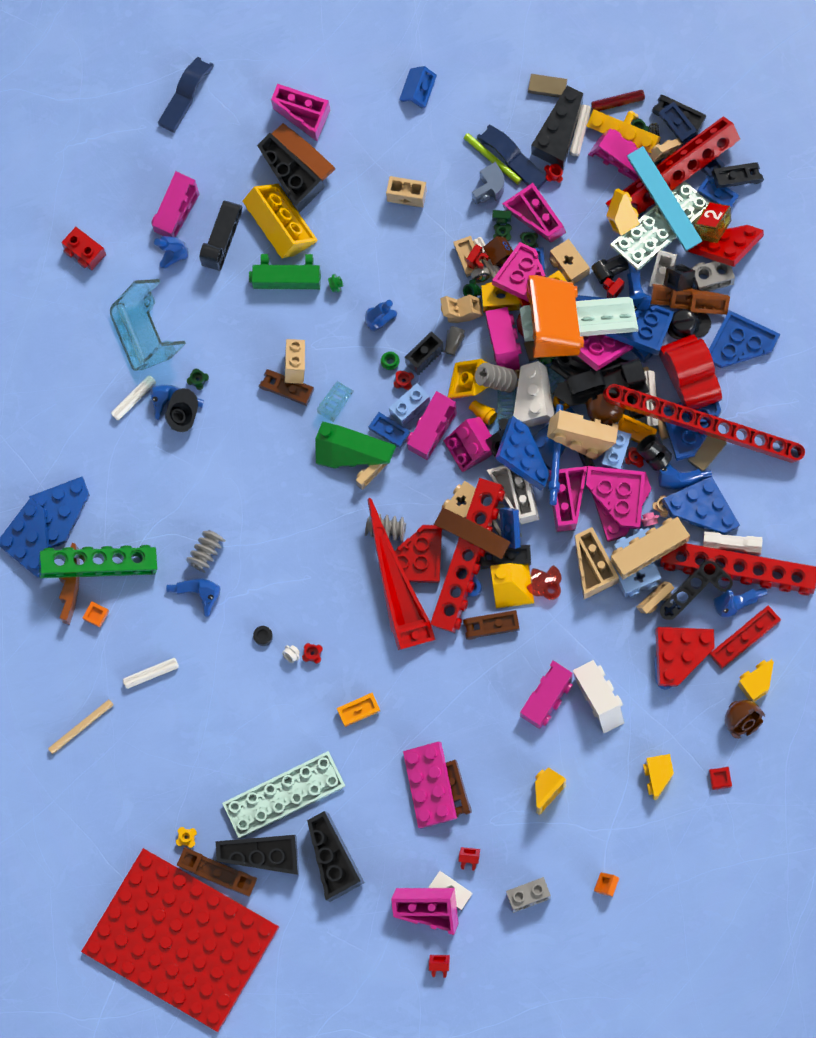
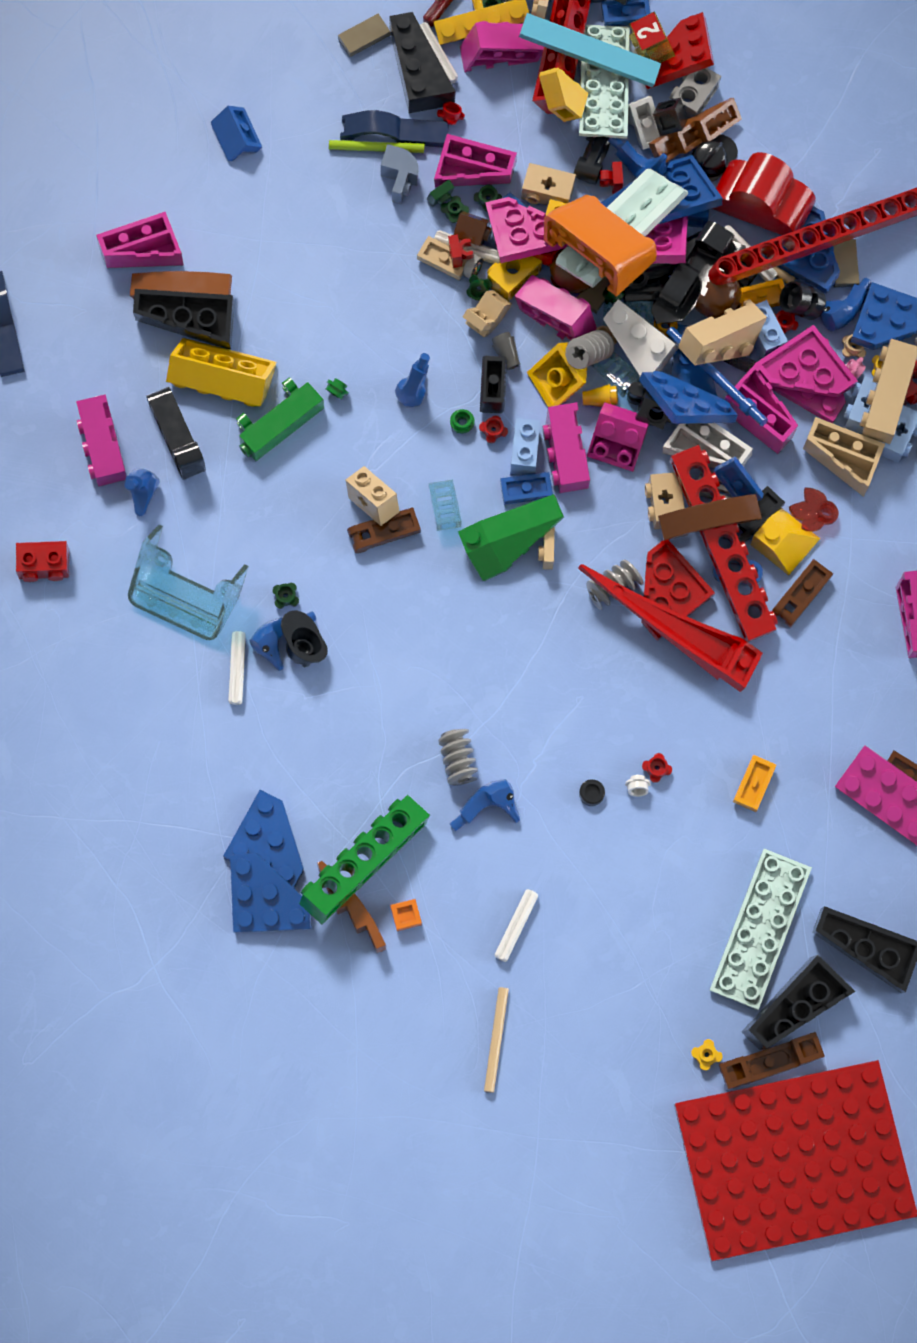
camera: 55 degrees left, 0 degrees up
(406, 191) = (325, 242): tan brick -> none
(741, 340) = (779, 128): blue plate -> none

